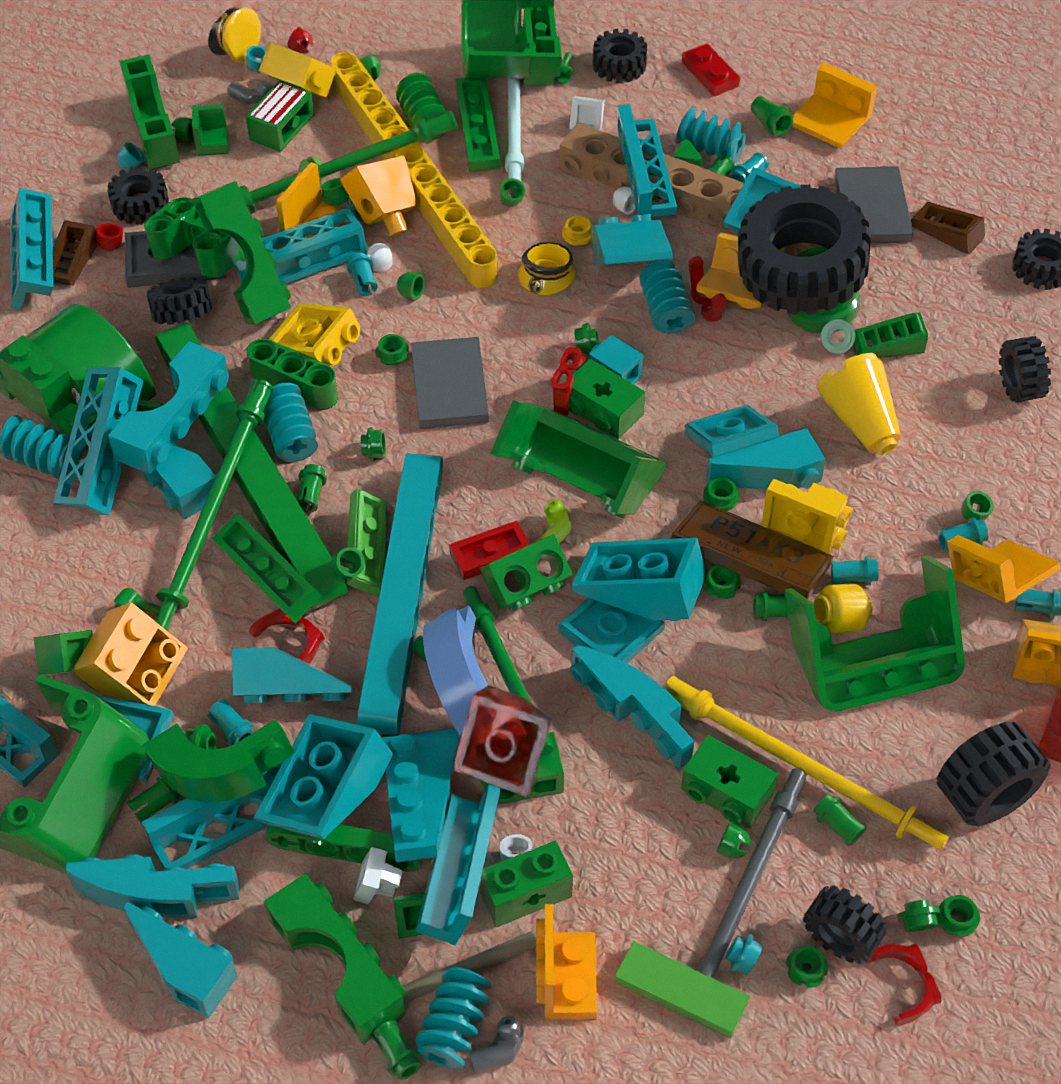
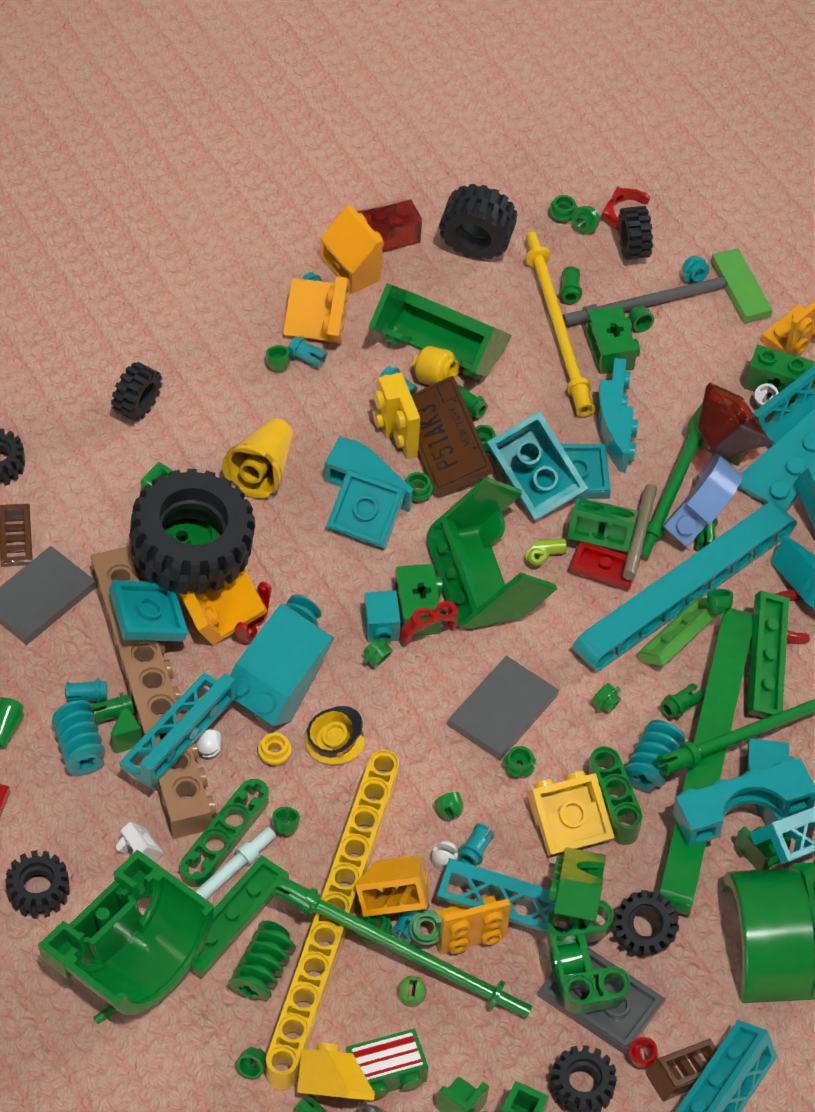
camera: 140 degrees left, 0 degrees up
(489, 595) = (639, 532): none -> dark tan bar
(544, 165) = (221, 830): none -> green beam
(807, 956) = (667, 245): green plate -> none

